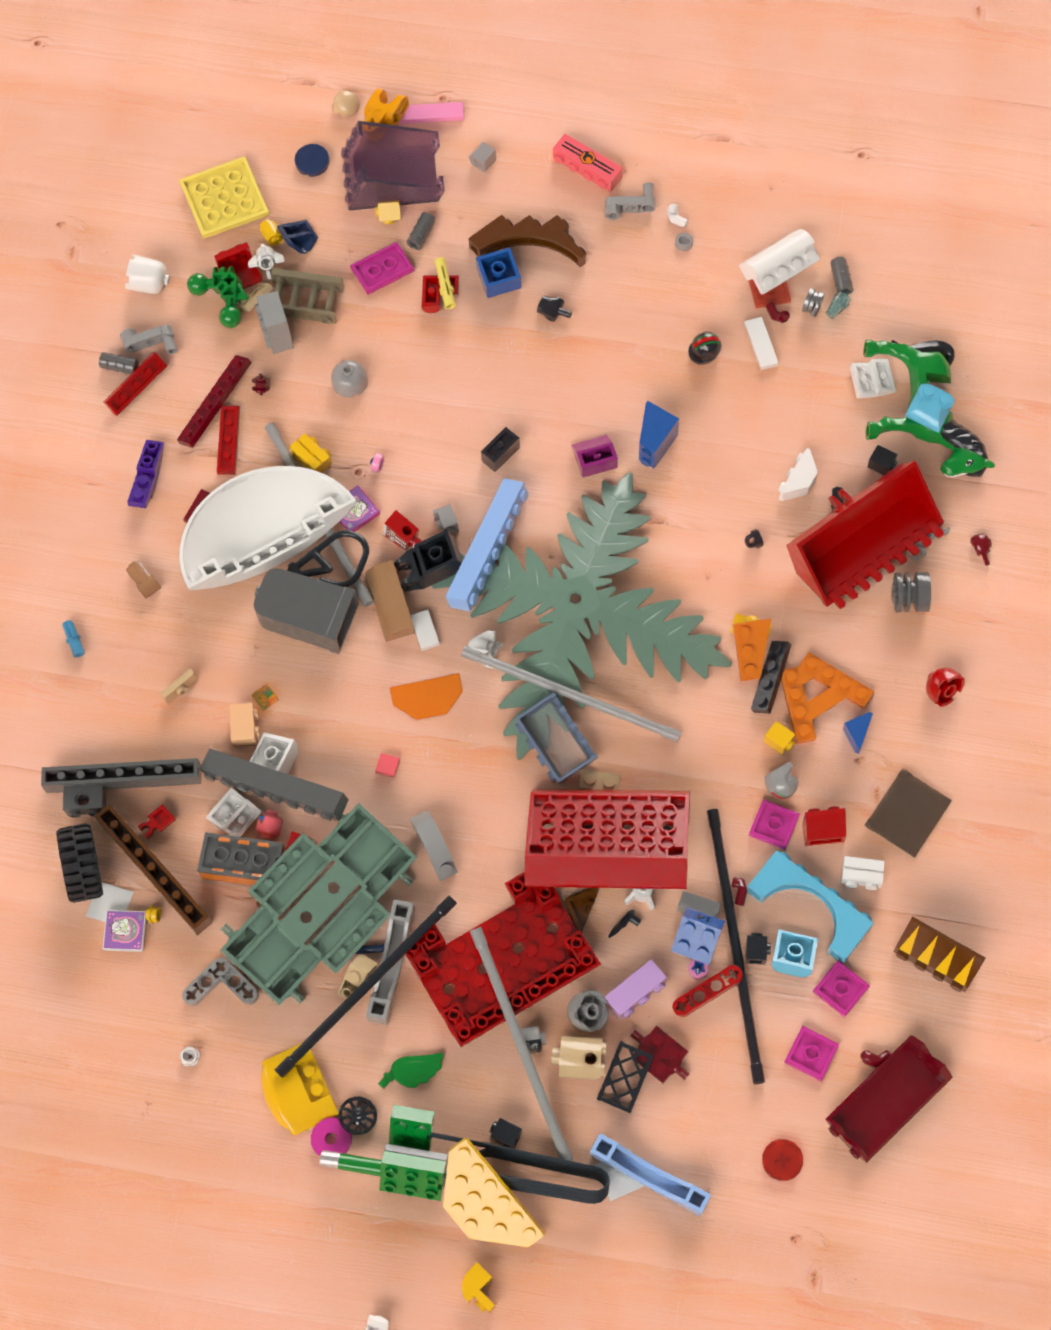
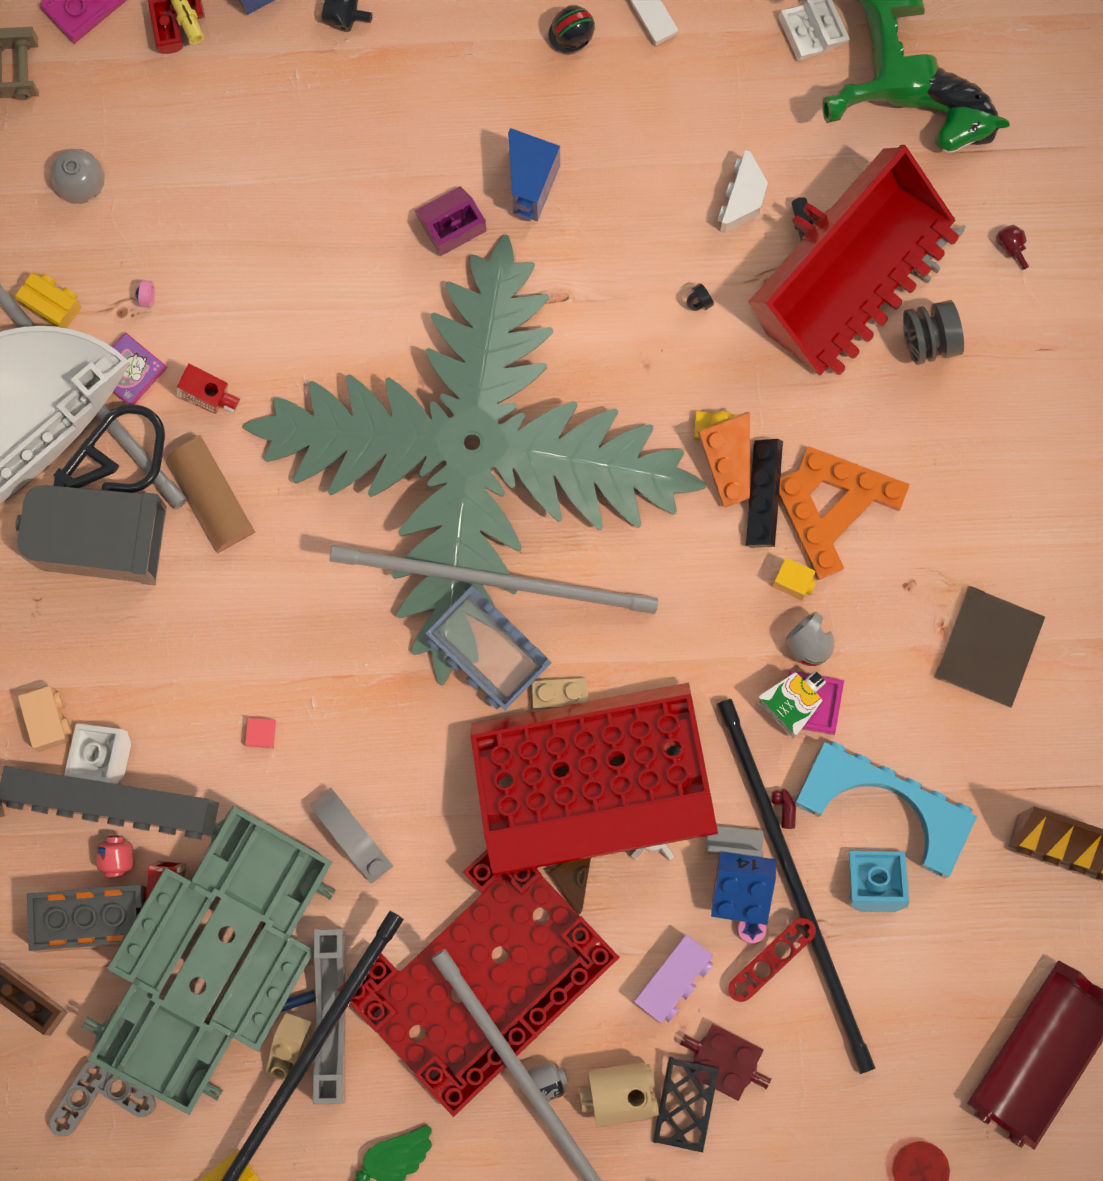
camera: 15 degrees left, 10 degrees up
(233, 814) = (60, 850): white slope -> none
(265, 697) = (65, 671): clear yellow tile -> none
(424, 630) = (268, 526): white tile -> none
(427, 697) = (294, 621): orange sticker -> none
(430, 561) = (256, 426): black brick -> none
(446, 519) = (263, 360): light grey brick -> none
(486, 644) = (359, 532): white brick -> none
(487, 545) = (329, 386): light blue brick -> none
(500, 449) = (316, 238): black panel -> none
(588, 1011) = (616, 1026): light grey cylinder -> none
(629, 916) = (637, 885): black bar -> none
(757, 949) = (826, 885): black brick -> none
(760, 818) = (793, 701): none -> torso
(811, 1053) = (929, 1013): dark pink tile -> none
(824, 826) = (882, 694): red slope -> none
(841, 988) = (950, 914): dark pink tile -> none
(856, 730) = (898, 546): blue slope -> none
(862, 872) = (946, 746): white brick -> none
(872, 1059) = (1015, 1005): dark red arm -> none
(882, 460) = (854, 147): black brick -> none
(930, 407) = (907, 58): medium azure slope -> none
(943, 685) = (1002, 455): red cylinder -> none

